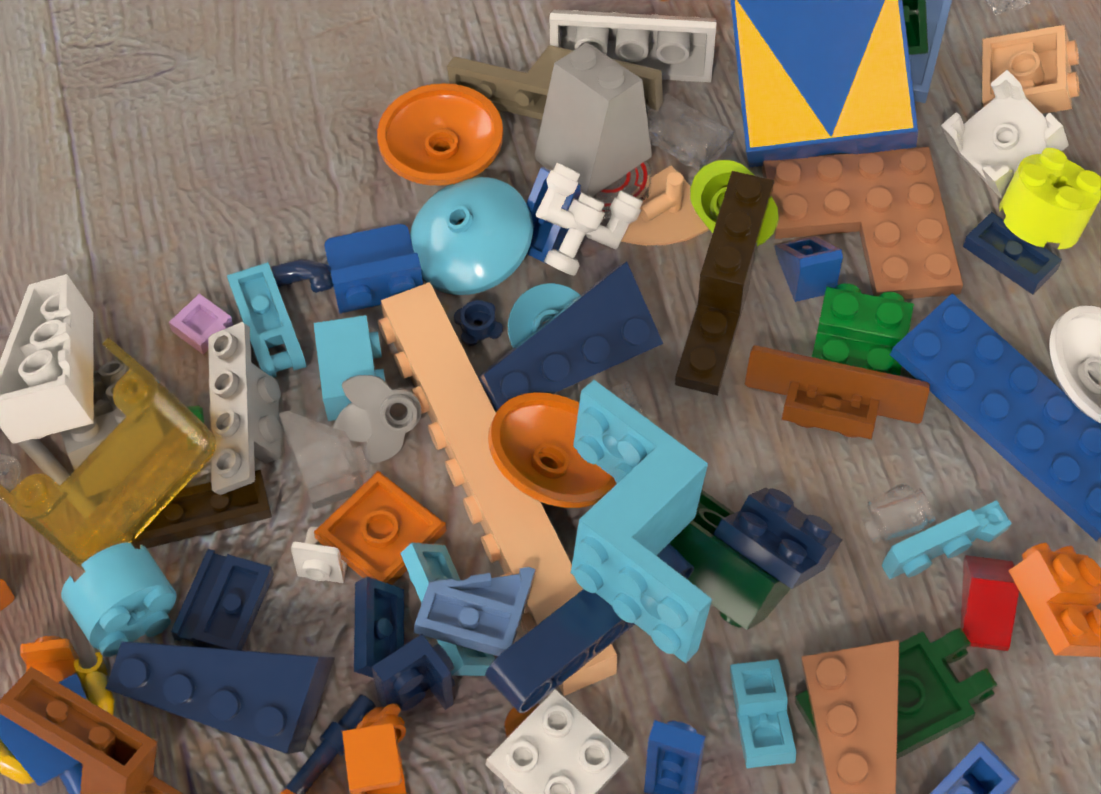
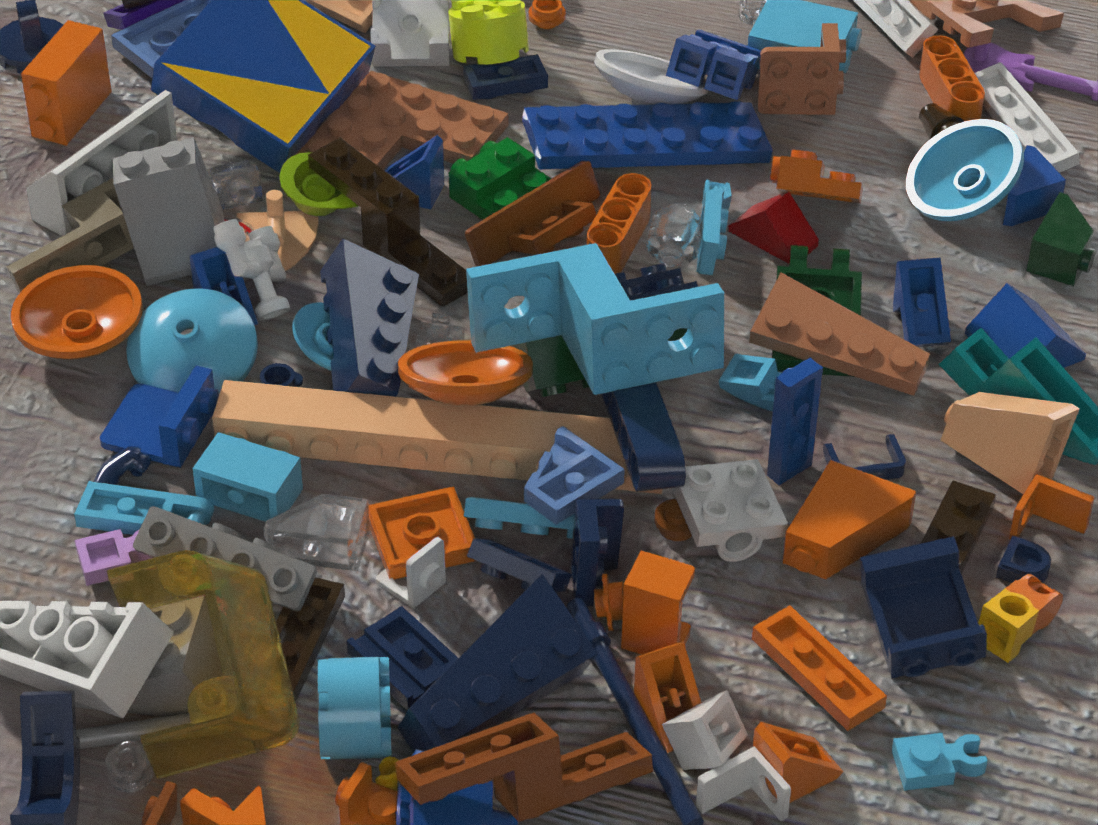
camera: 60 degrees left, 15 degrees down
(370, 418) = (317, 468): light grey plate -> none
(890, 447) = (622, 219): none -> orange beam

